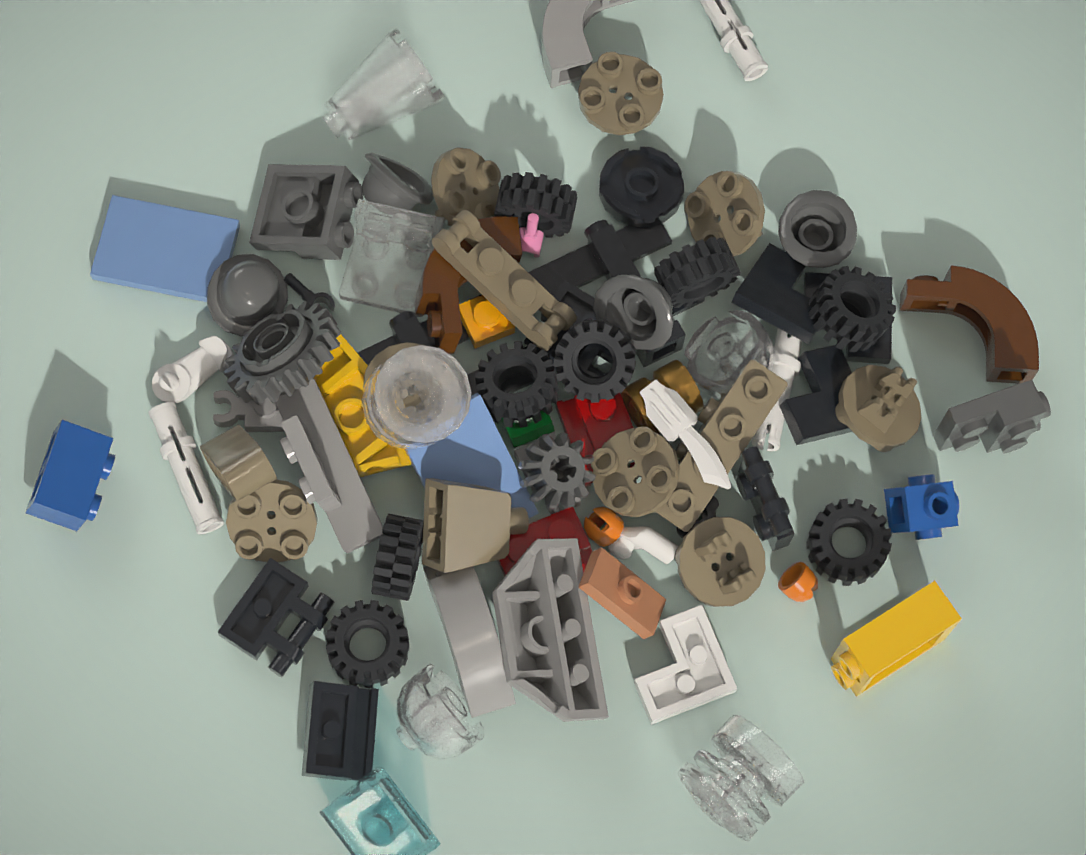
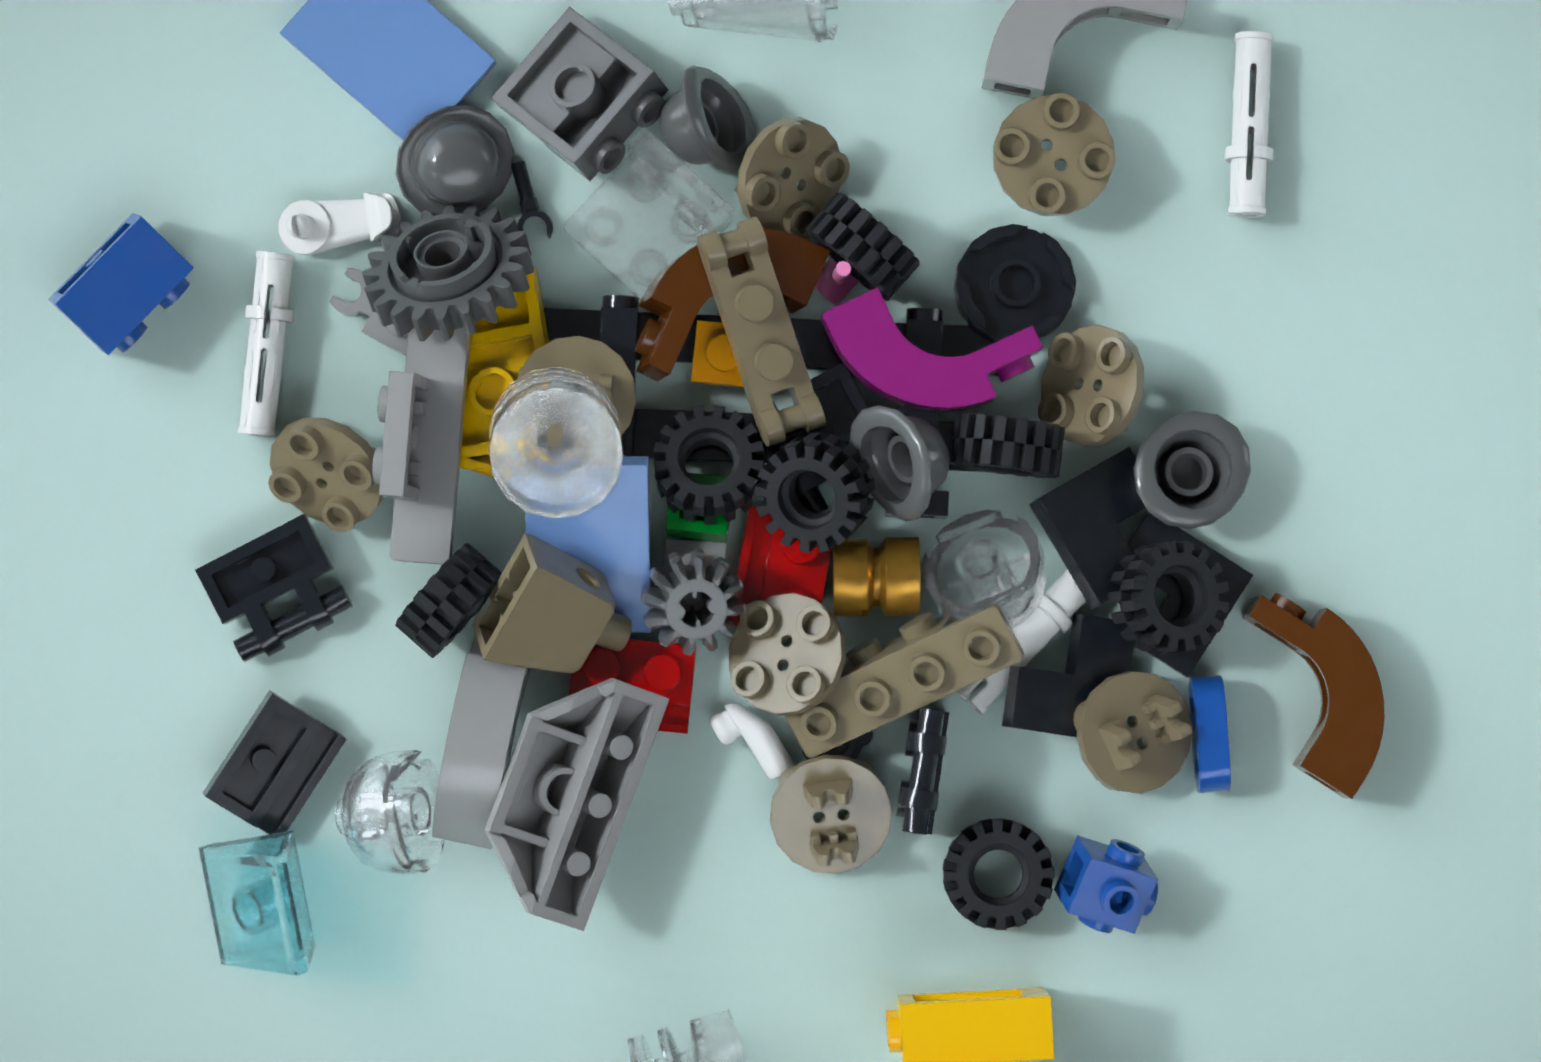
camera: 40 degrees right, 15 degrees up
(238, 462) = (319, 384): dark tan beam -> none
(361, 617) = (325, 673): black tyre -> none
(593, 258) = (910, 377): none -> magenta arch
(610, 532) = (727, 699): orange hinge -> none
(622, 593) = (688, 790): nougat plate -> none
(675, 420) = (865, 623): white piece -> none
(698, 670) = (726, 930): white plate -> none
(798, 582) = (909, 887): orange hinge -> none
(931, 389) = (1209, 734): none -> blue beam
(998, 419) = (1269, 837): dark grey plate -> none

